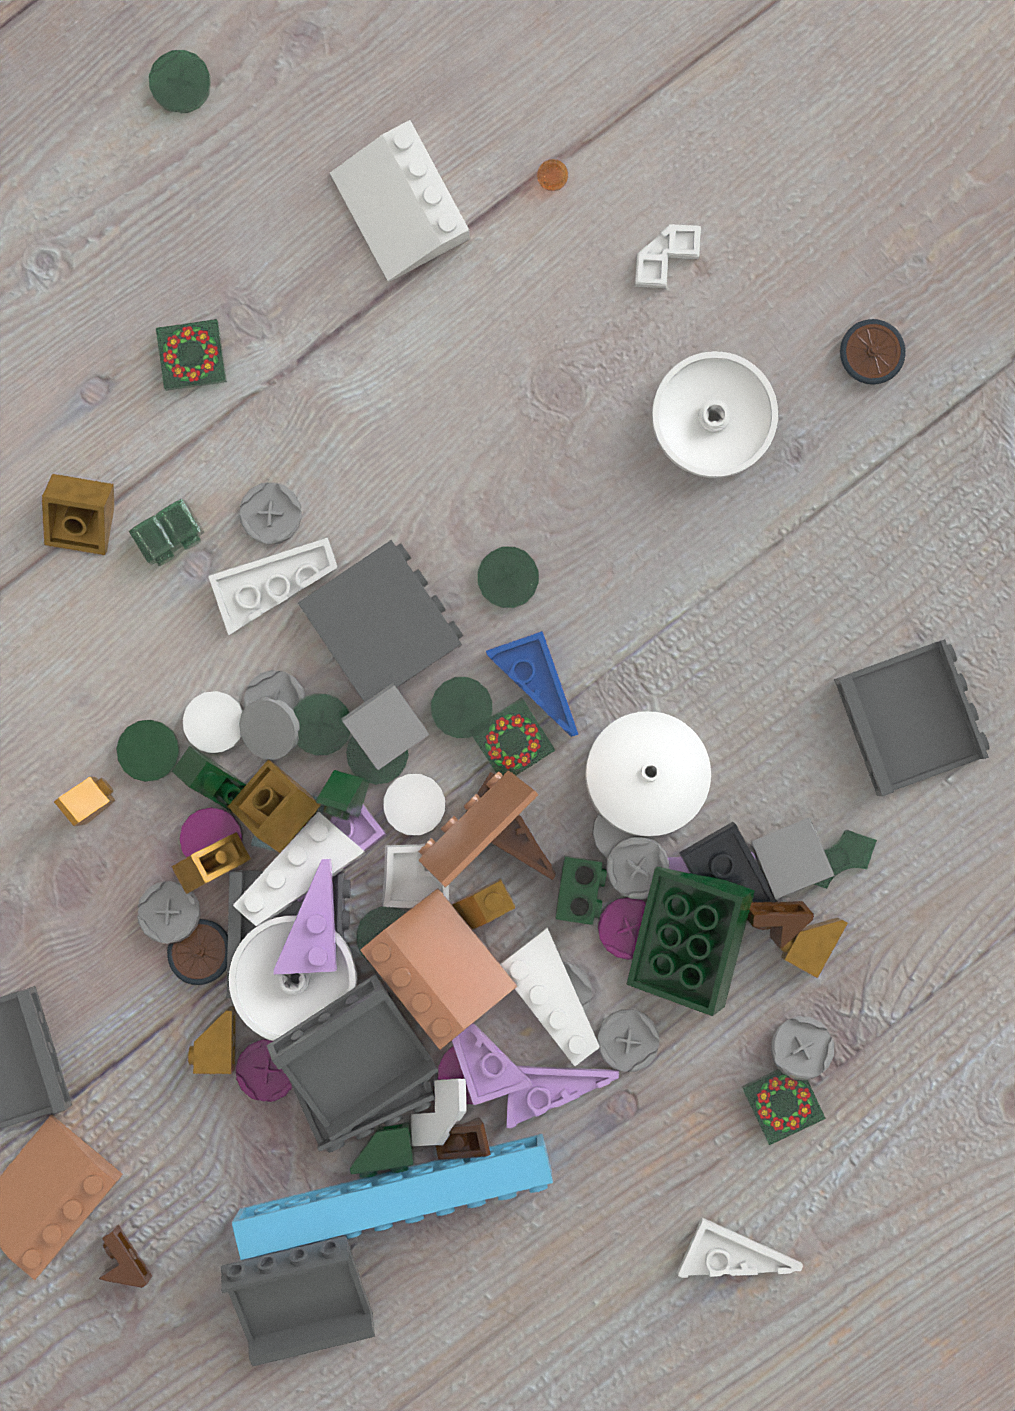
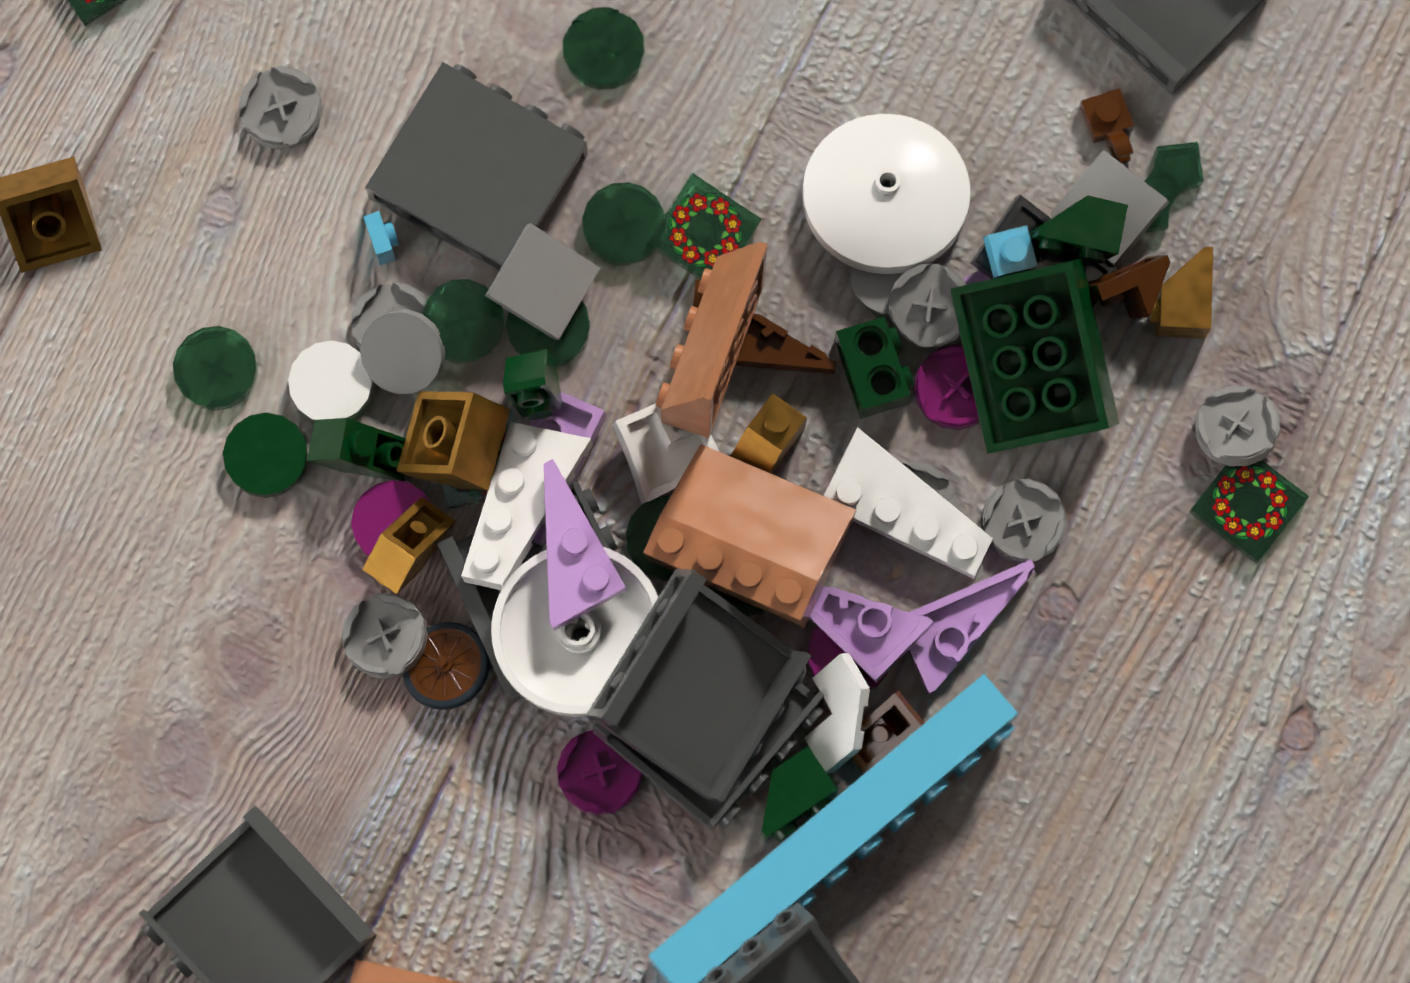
camera: 30 degrees left, 10 degrees down
(85, 800) = (219, 544): slope -> none
(142, 674) = (215, 368): none -> clear green tile
(167, 532) = (166, 184): clear green brick -> none
(216, 1047) = (521, 768): pearl gold slope -> none
(261, 584) = (313, 189): white wing -> none
(294, 639) = (382, 237): none -> medium azure plate
(414, 804) = (622, 364): white tile -> none
(533, 670) = (690, 140): blue wing -> none
(708, 861) = (1010, 251): none -> medium azure plate
(722, 1251) = (1270, 717): white wing -> none
(765, 867) = (1086, 227): none -> dark green slope
(824, 793) = (1109, 121): none -> reddish brown plate

